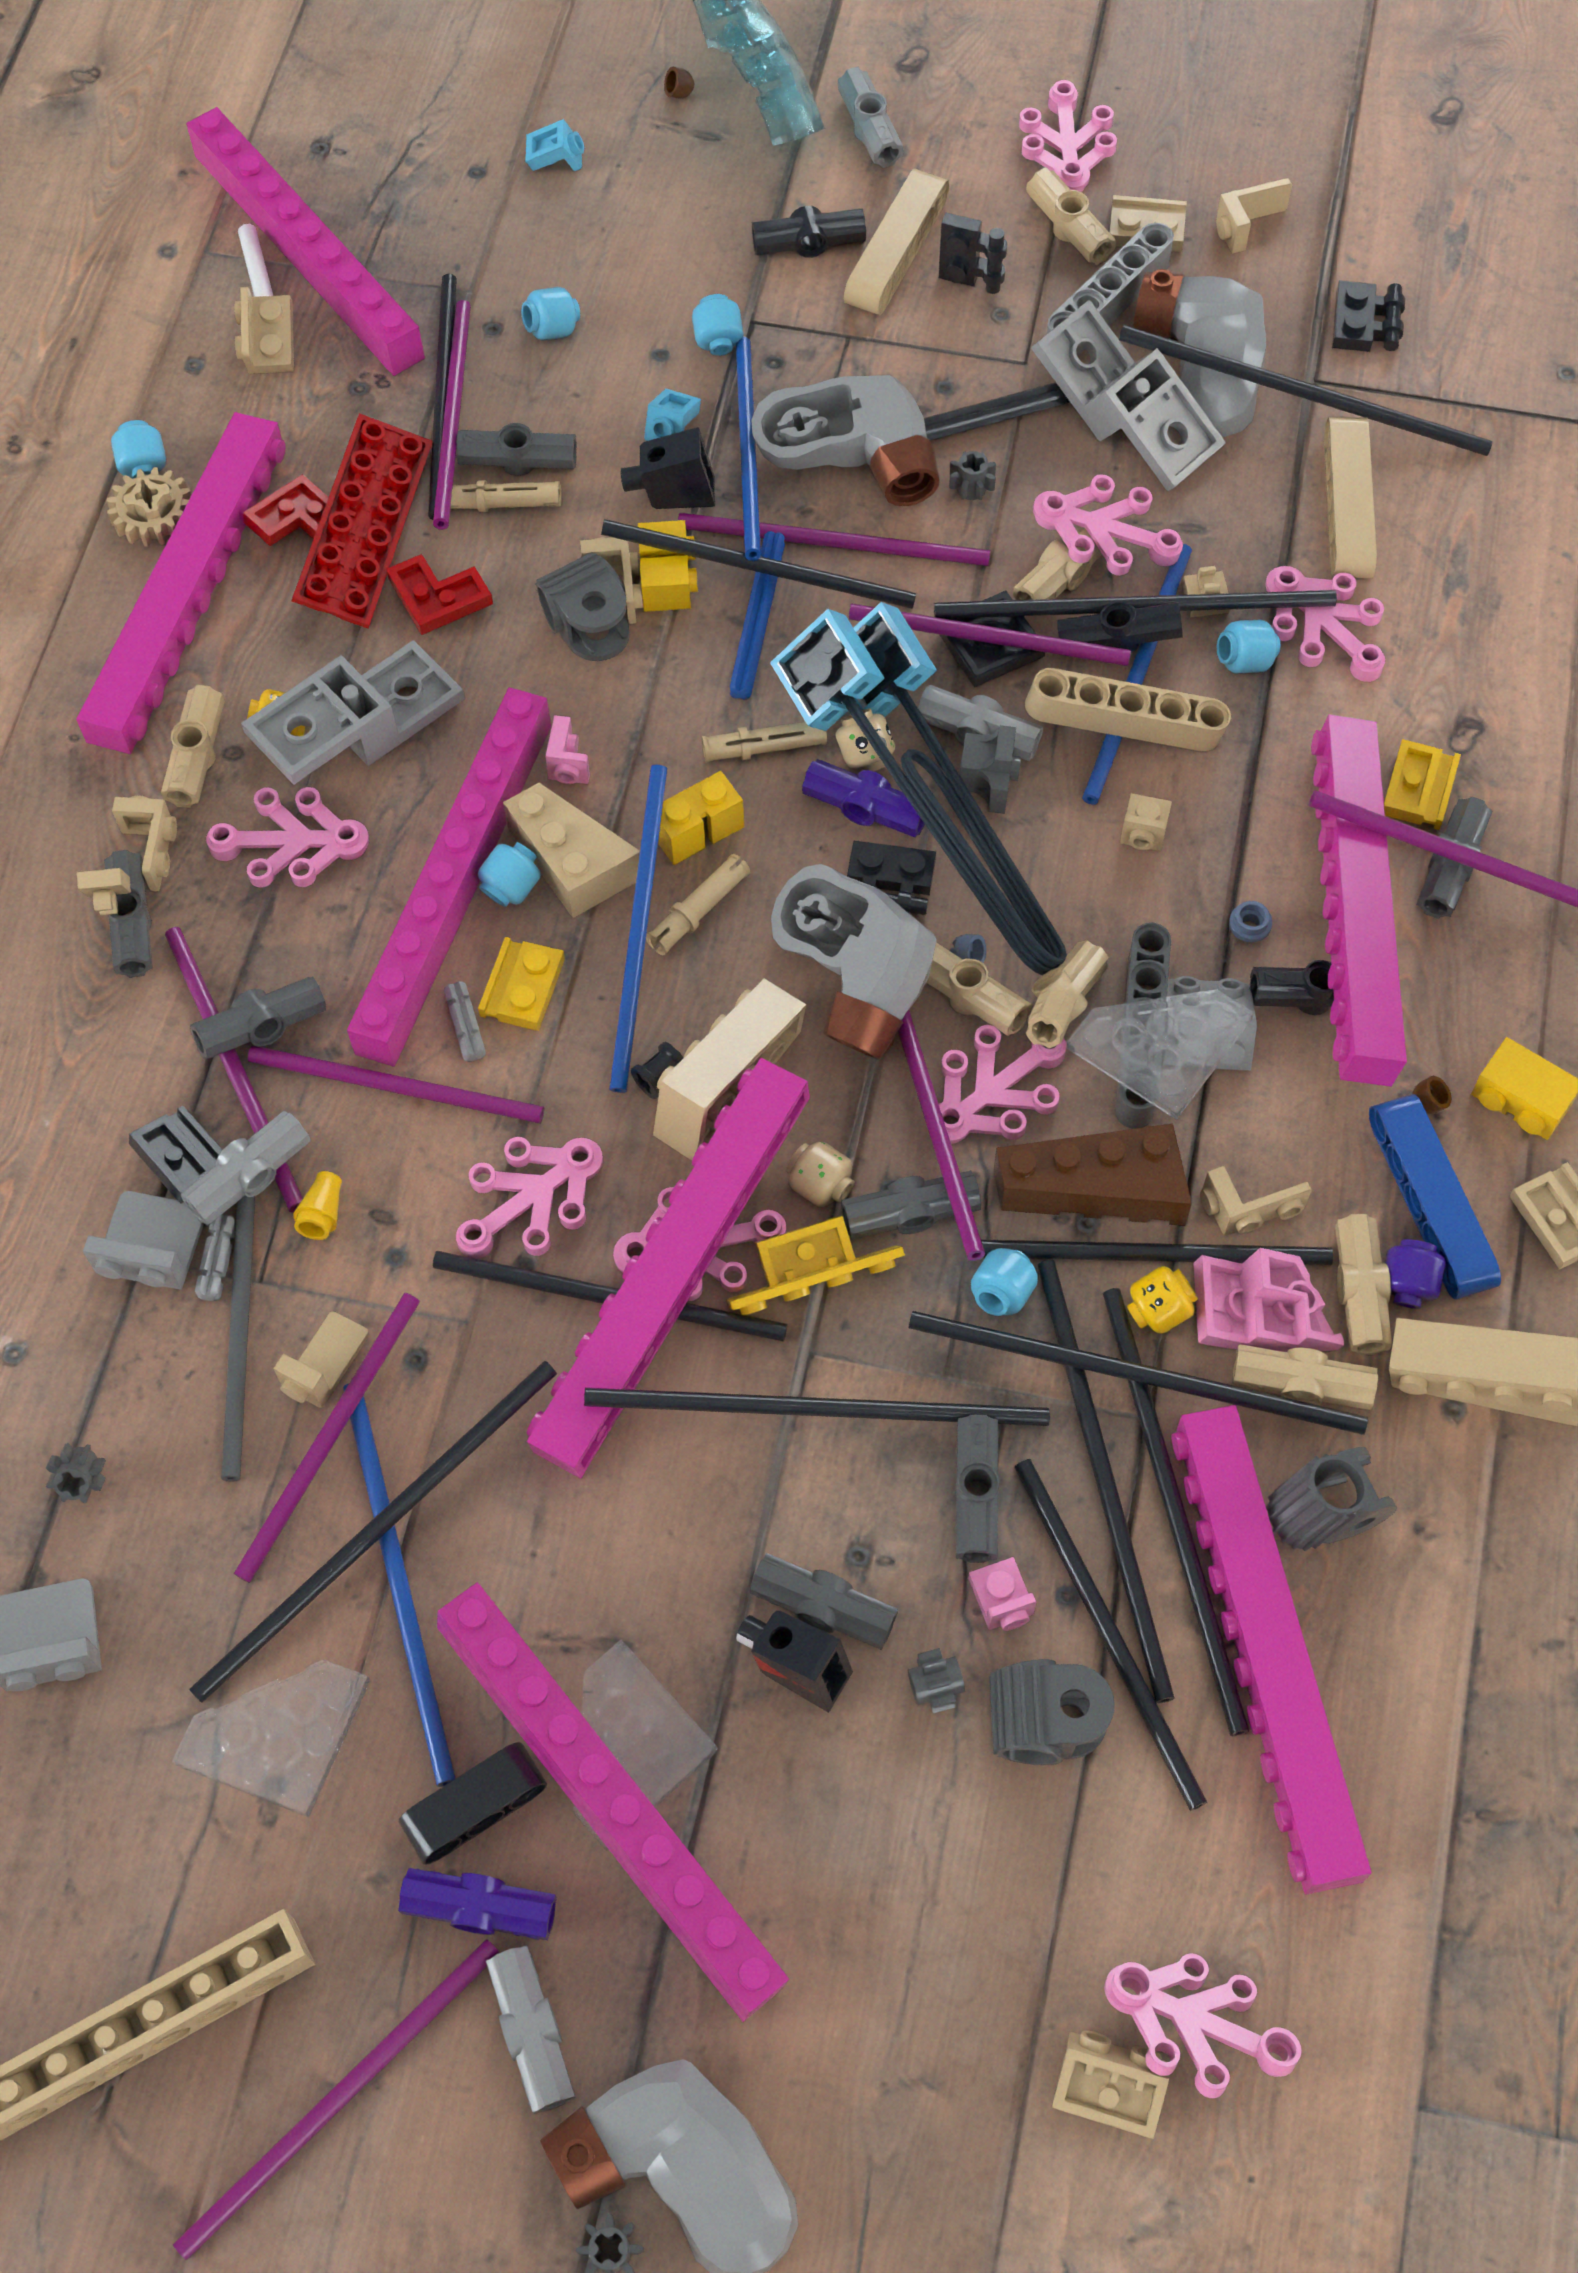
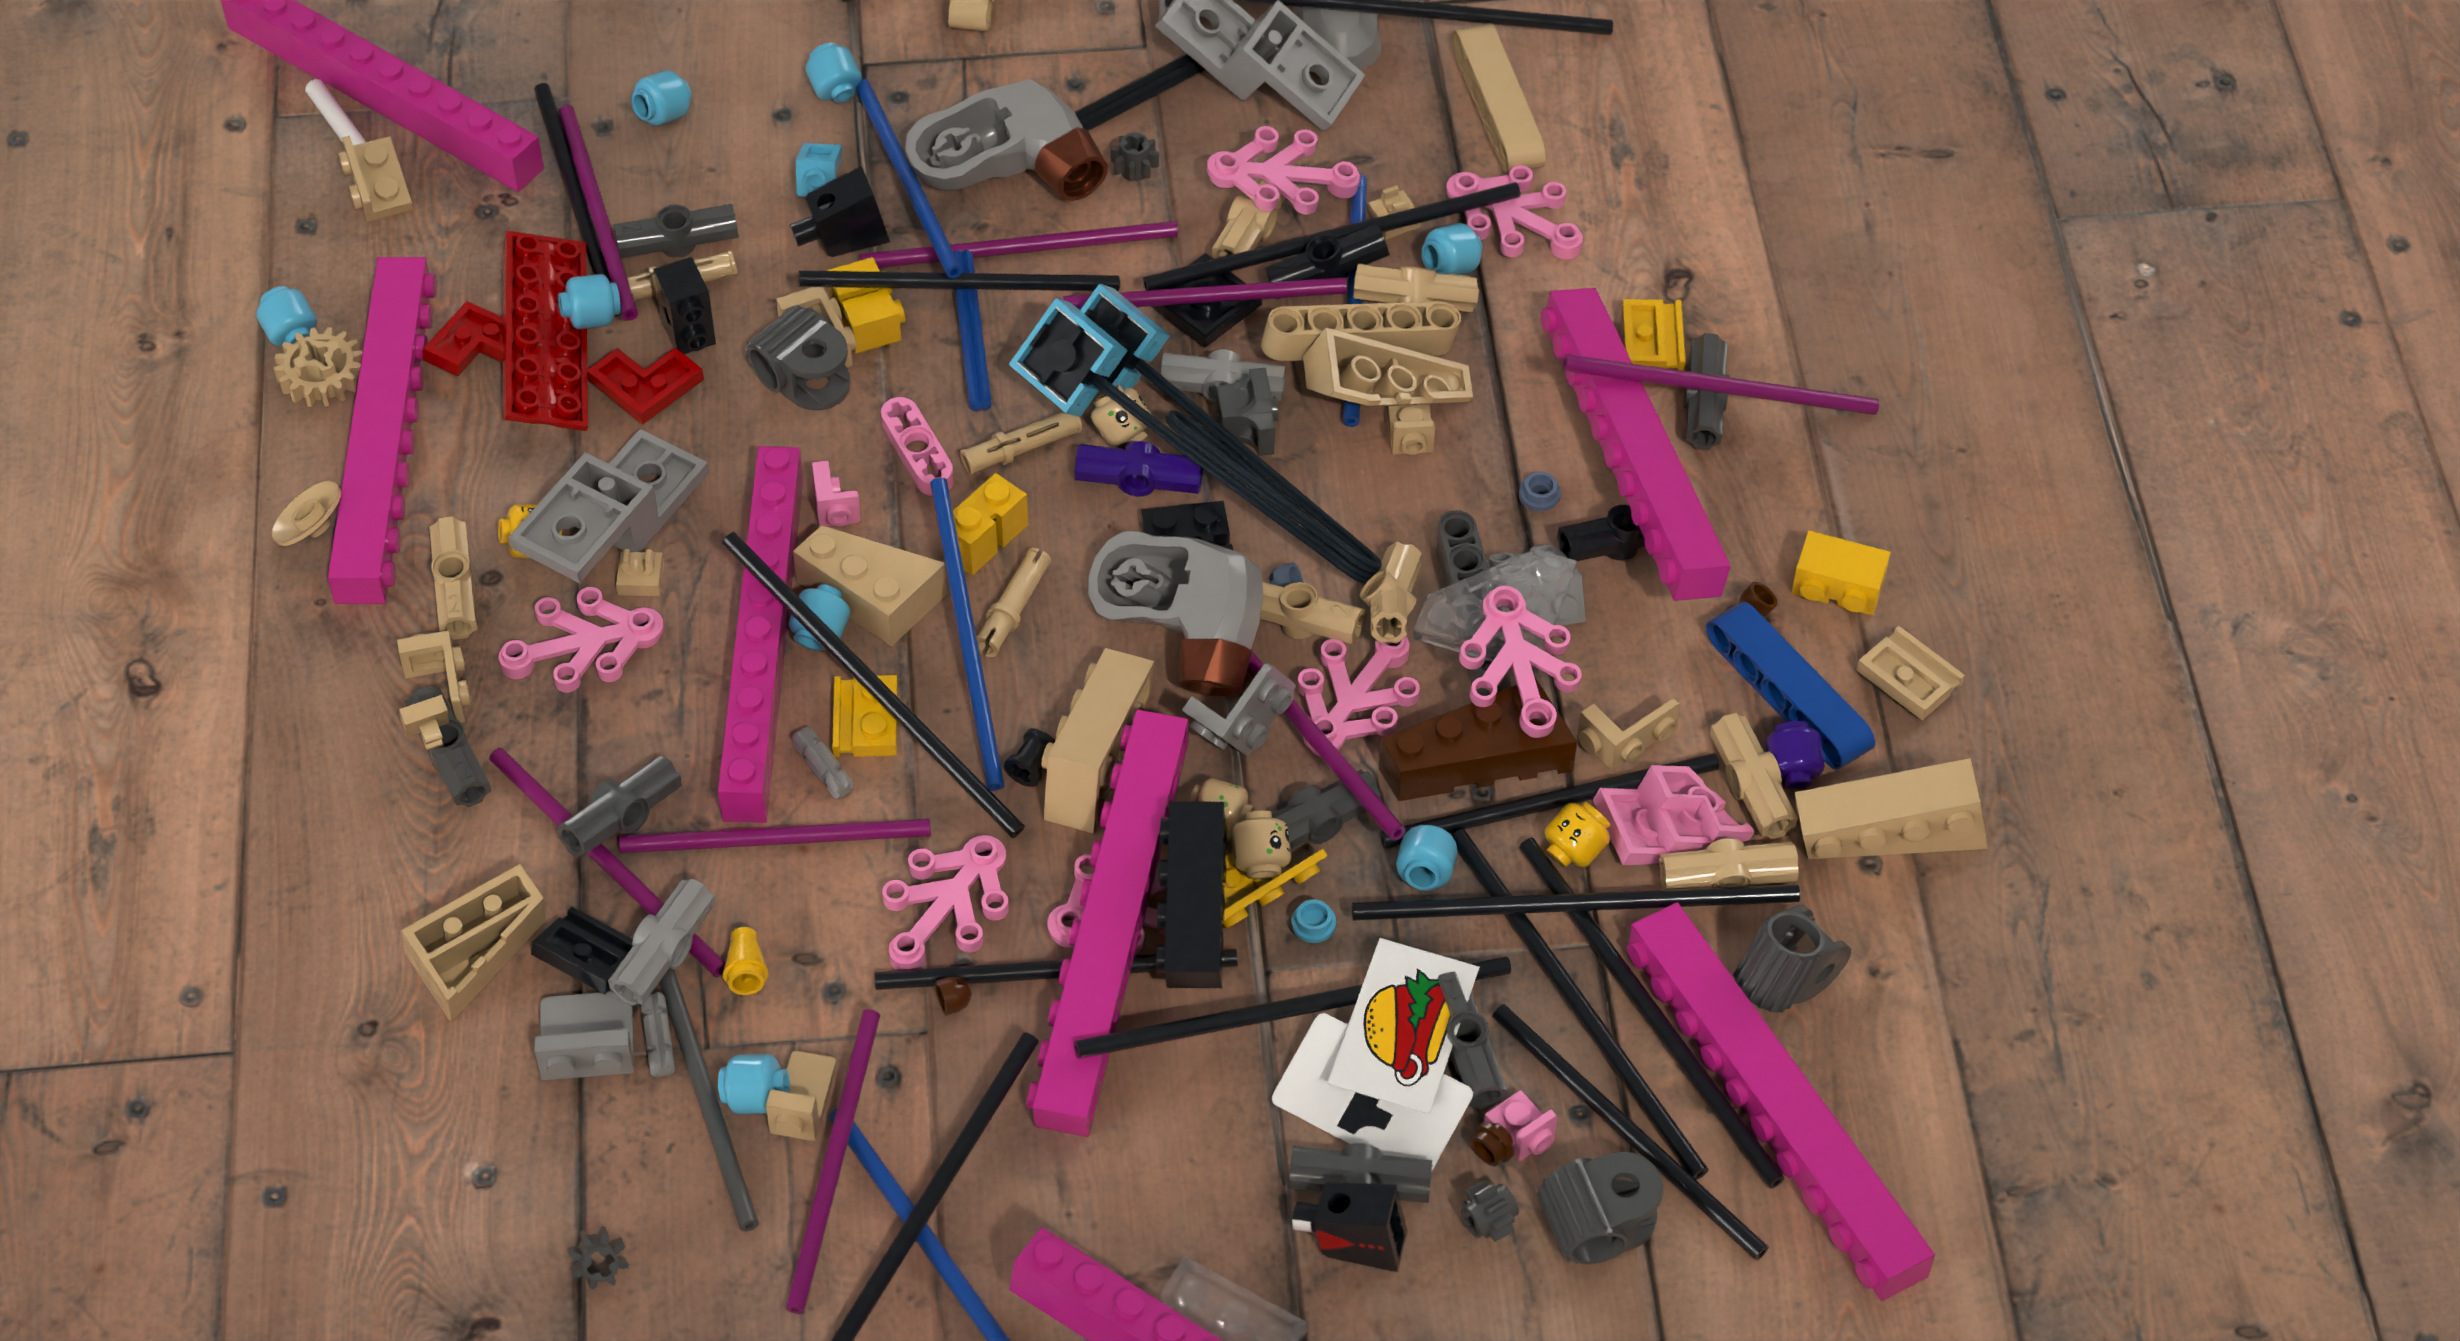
camera: 20 degrees left, 10 degrees down
(78, 1115) = (473, 937): none -> tan wedge
(86, 650) = (307, 514): none -> tan dish
(276, 1332) = (748, 1081): none -> medium azure head
(365, 784) = (640, 573): none -> tan tile
(407, 502) = (589, 301): none -> medium azure head
(493, 528) = (684, 306): none -> black brick
(501, 1295) = (952, 994): none -> reddish brown hinge
(532, 960) = (874, 685): none -> black piece
(671, 706) = (916, 430): none -> bright pink beam
(750, 1267) = (1194, 894): none -> black wedge
(838, 1229) = (1261, 845): none -> tan head
(865, 1519) = (1360, 1117): none -> white sticker
(872, 1317) = (1313, 921): none -> medium azure plate
(877, 1089) = (1249, 720): none -> light grey bracket
(912, 1459) = (1399, 1027): none -> sticker
(965, 1607) = (1492, 1143): none -> reddish brown plate
(1133, 761) = (1382, 373): none -> tan wedge
(1160, 1099) = (1519, 655): none -> bright pink plant
(1197, 676) = (1414, 285): none -> tan piece

